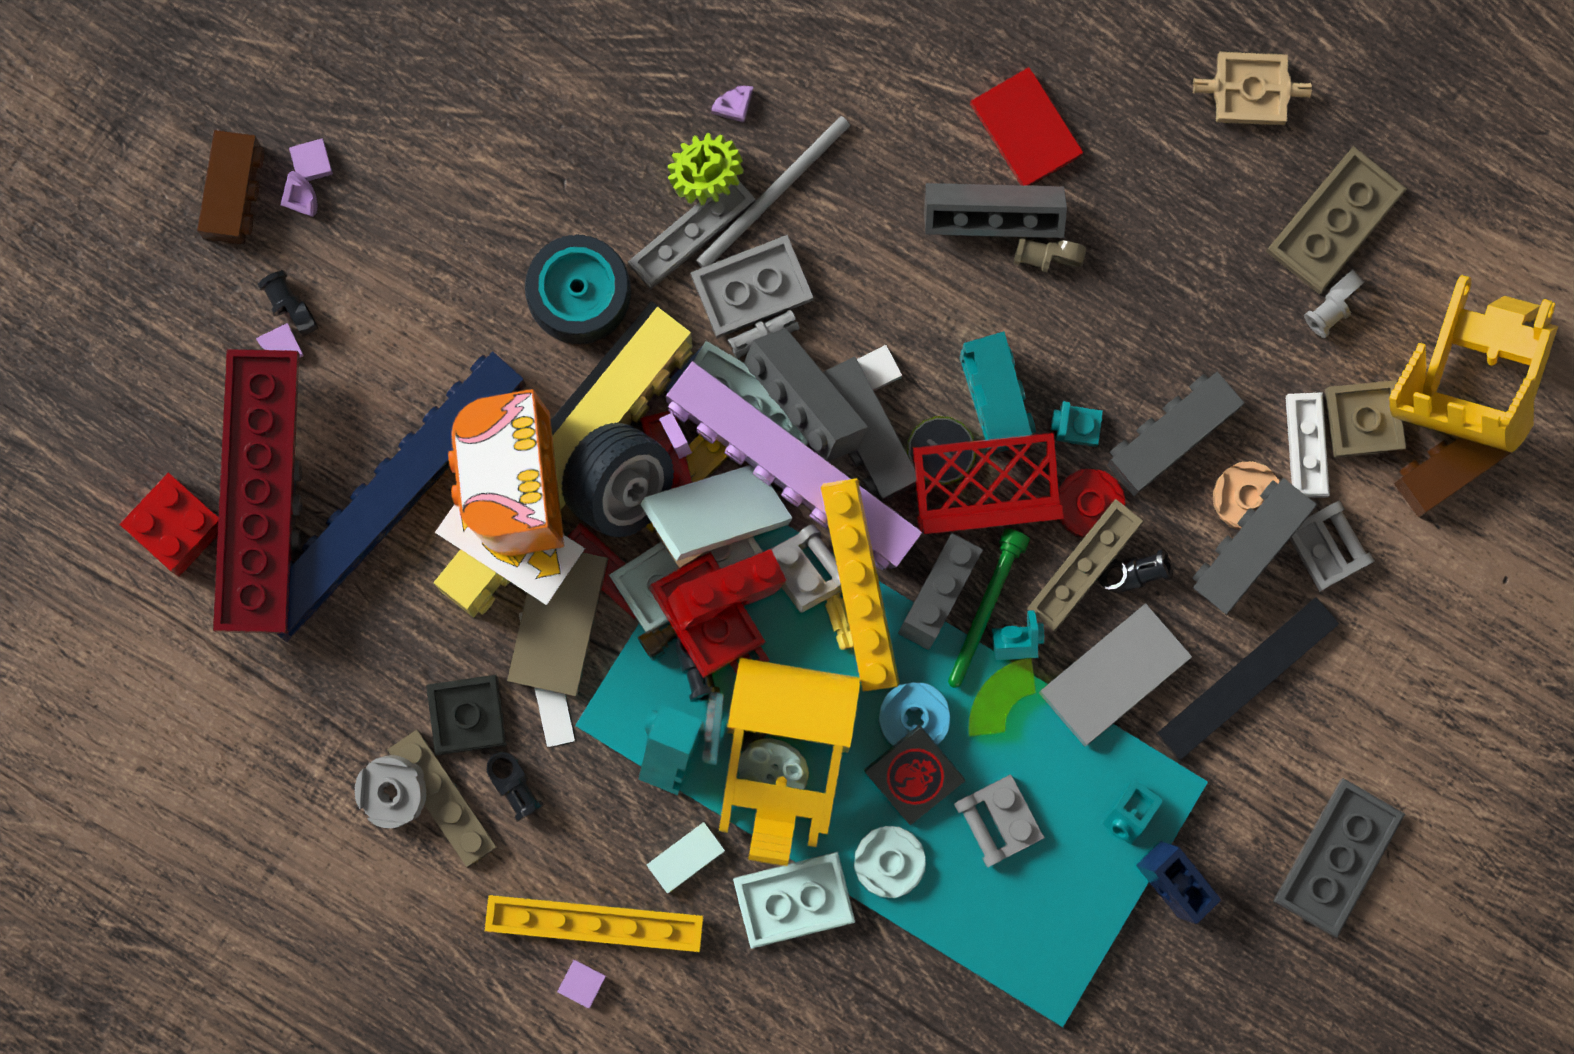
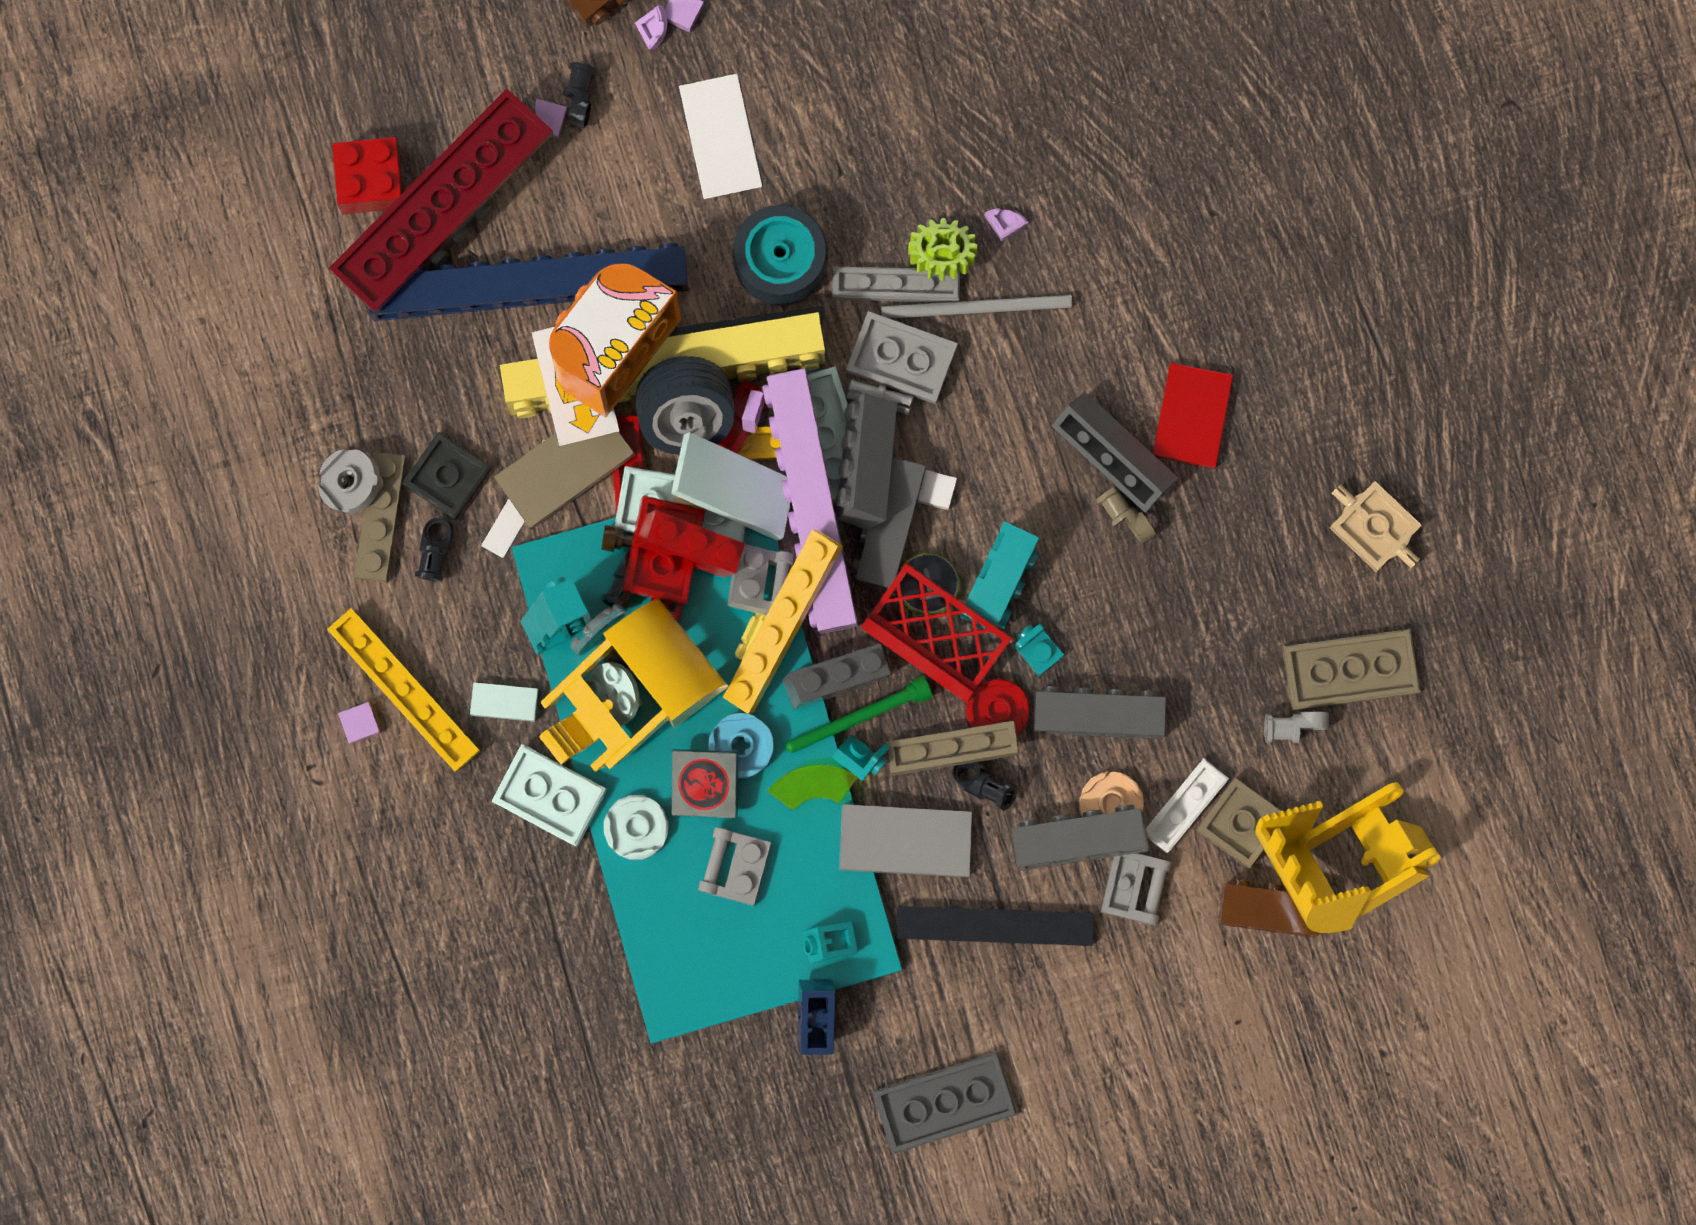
camera: 45 degrees right, 0 degrees up
(436, 237) = (720, 136): none -> white sticker

